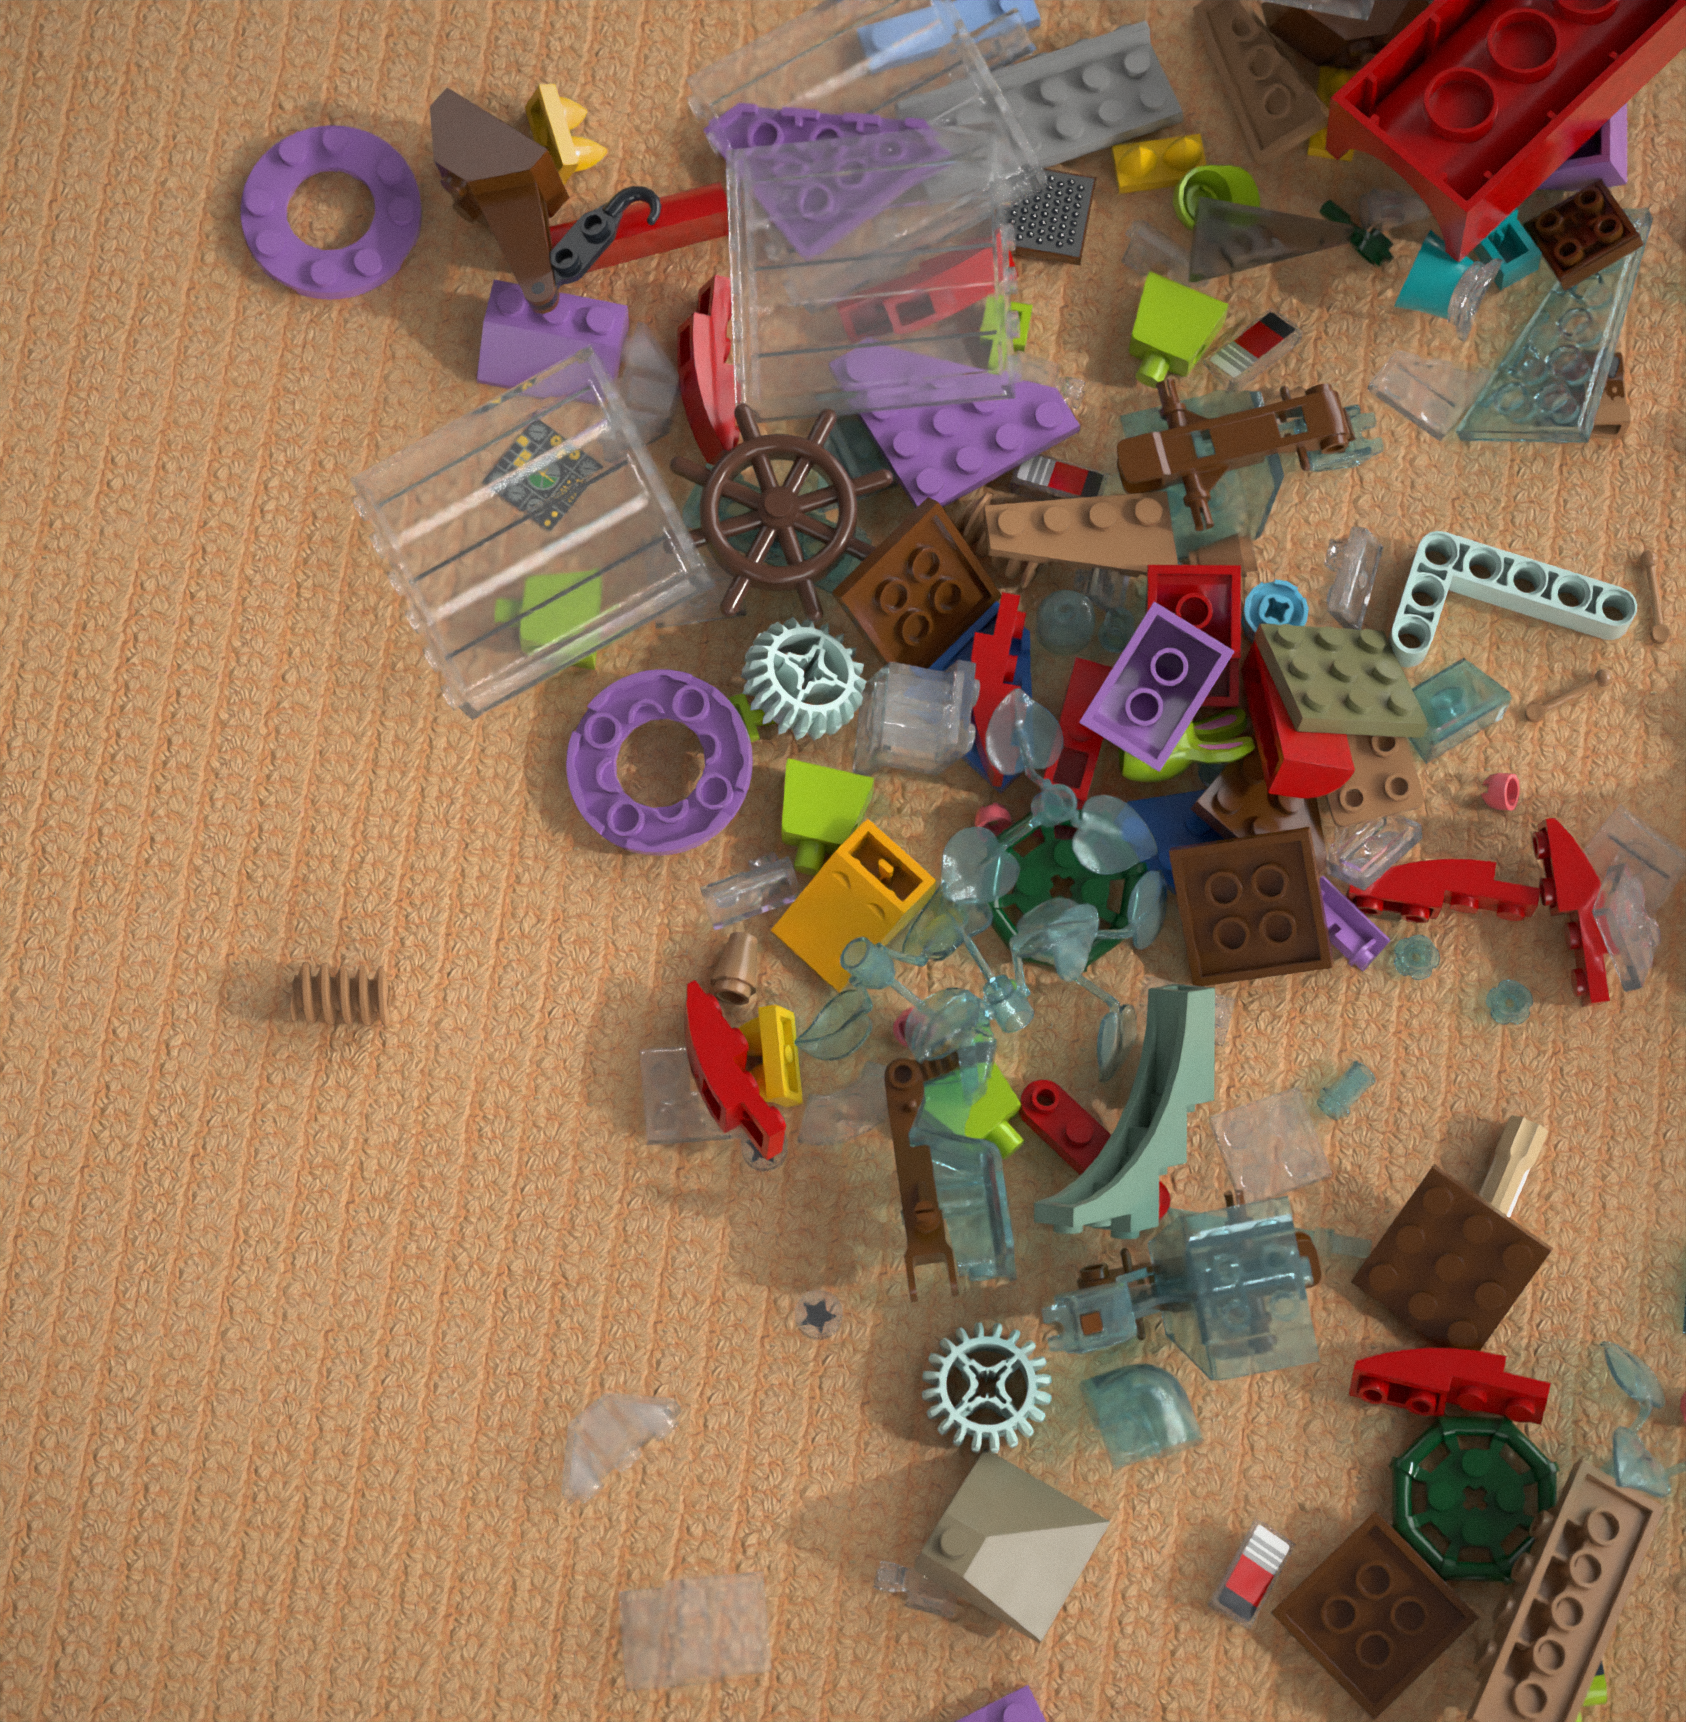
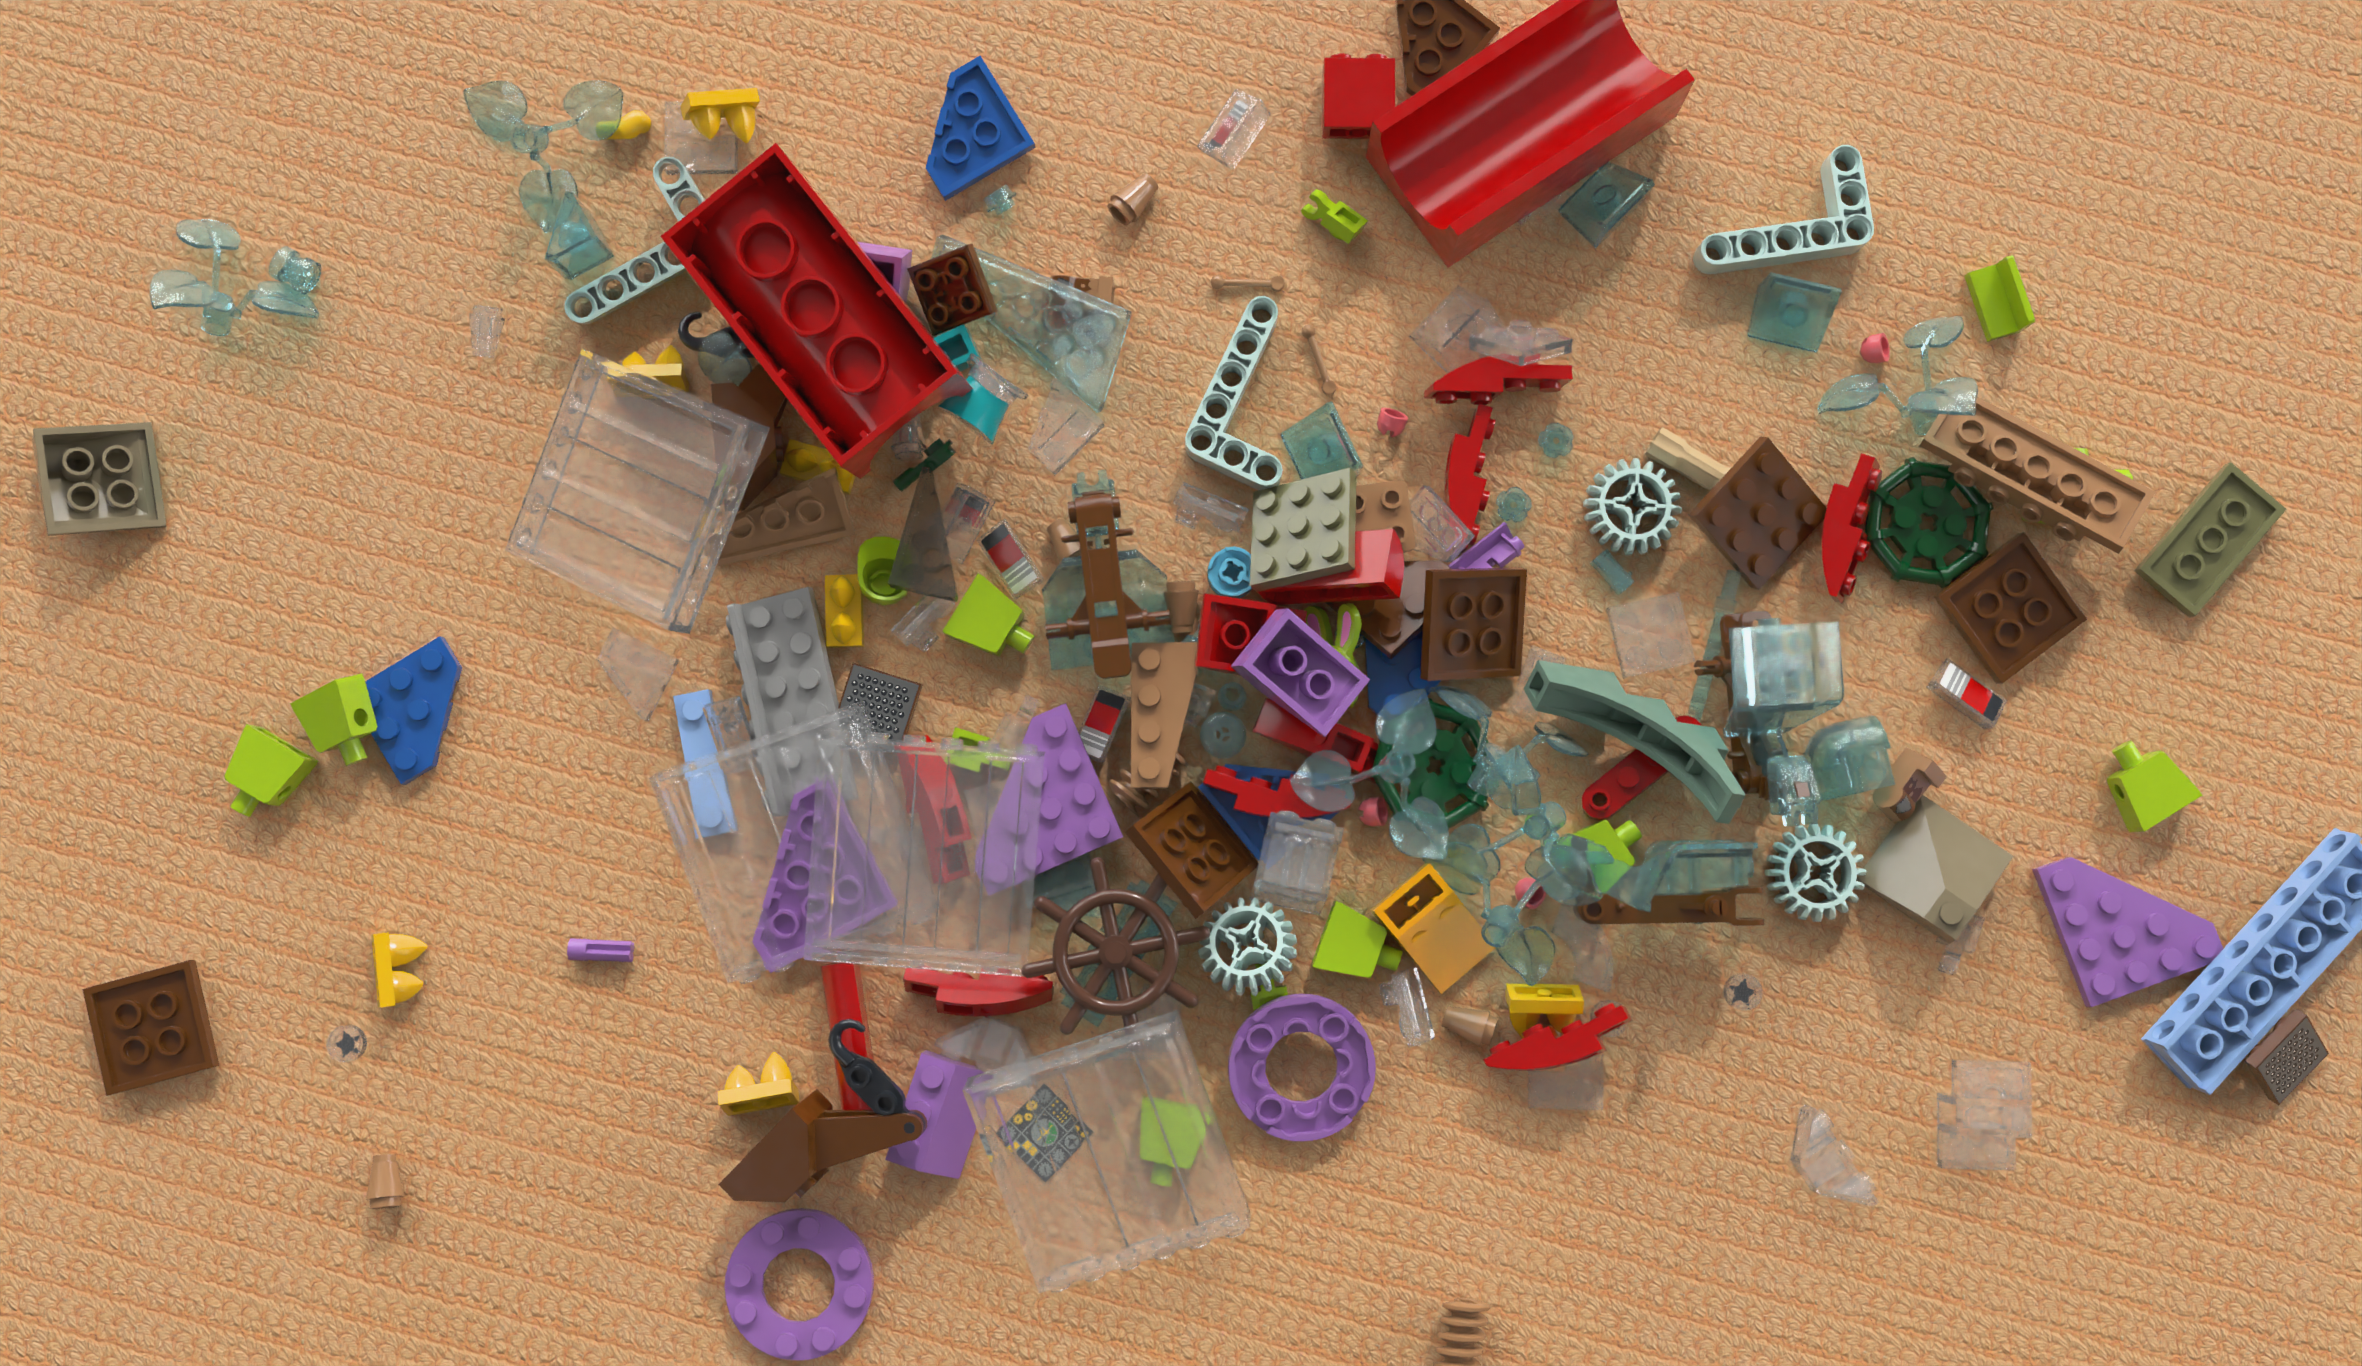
camera: 80 degrees left, 10 degrees up
(1116, 1494) = (1912, 777): none -> medium nougat leg
(1292, 289) = (964, 518): none -> clear slope
(1456, 1103) = (1634, 492): none -> light aqua gear

